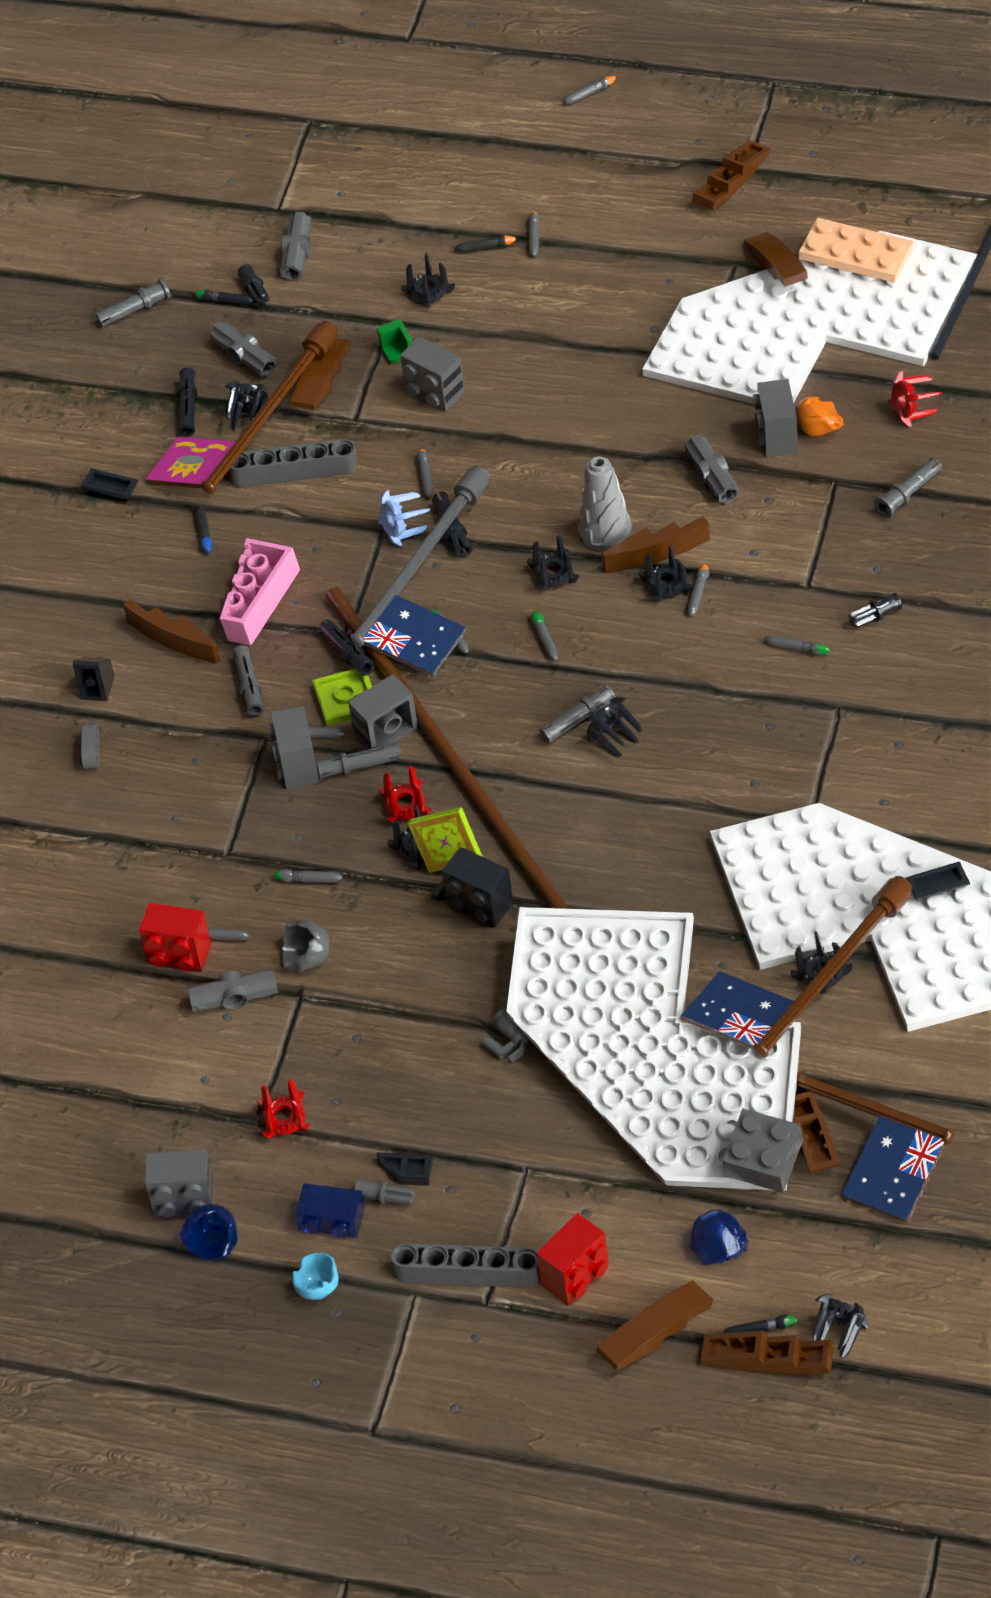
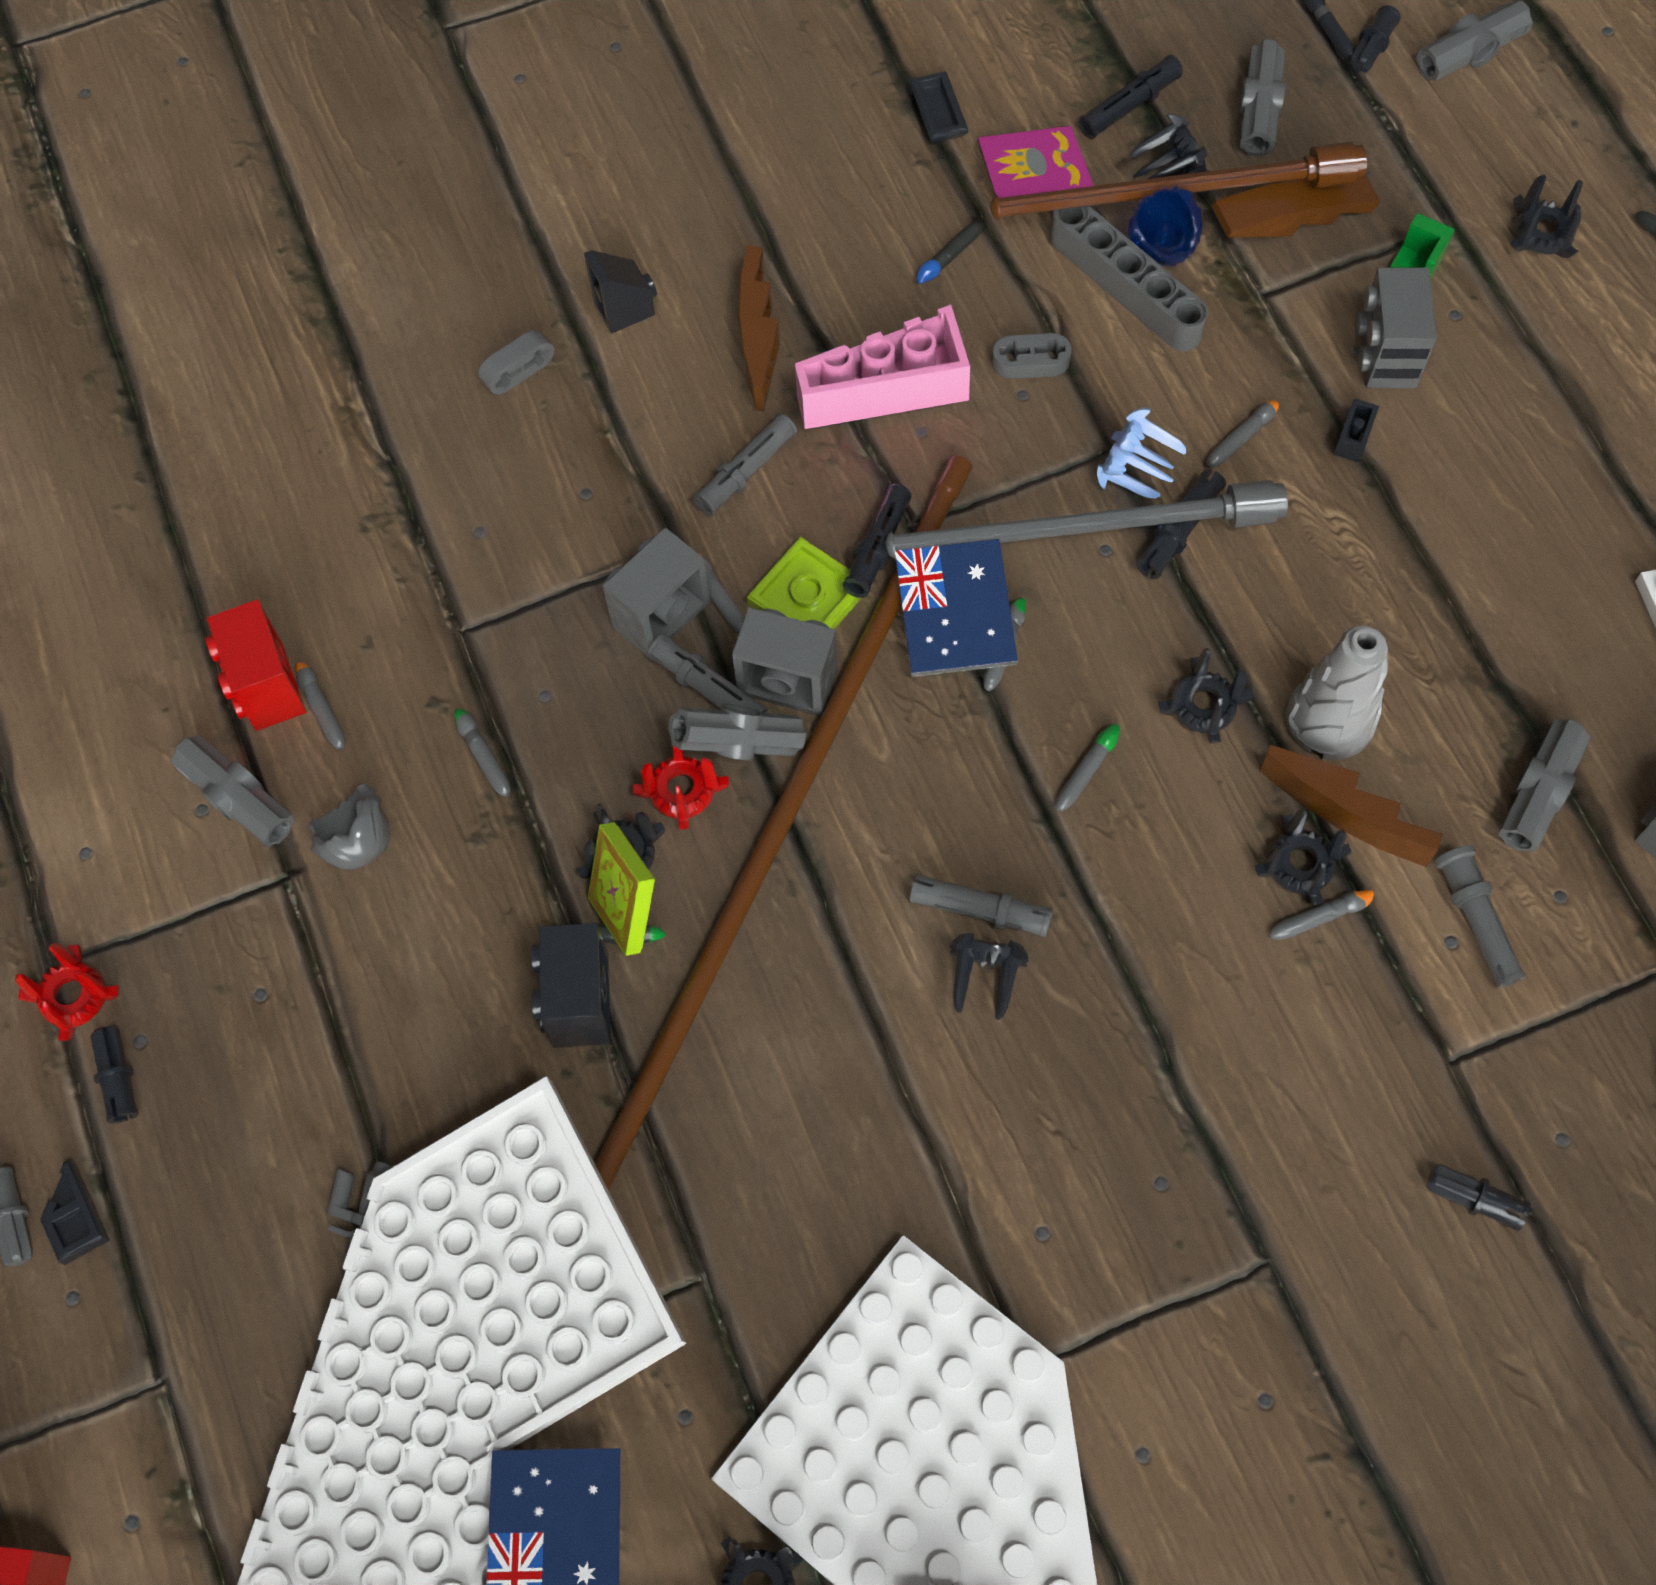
camera: 50 degrees right, 15 degrees up
(285, 426) = (1167, 225): none -> clear blue hair
(301, 531) = (1031, 355): none -> dark grey beam
(347, 1113) = (113, 1075): none -> black axle
(404, 751) = (736, 731): none -> dark grey piece
(467, 427) = (1356, 430): none -> black piece
(740, 528) = (1473, 895): none -> dark grey pin
(799, 645) = (1332, 1124): dark grey piece -> none

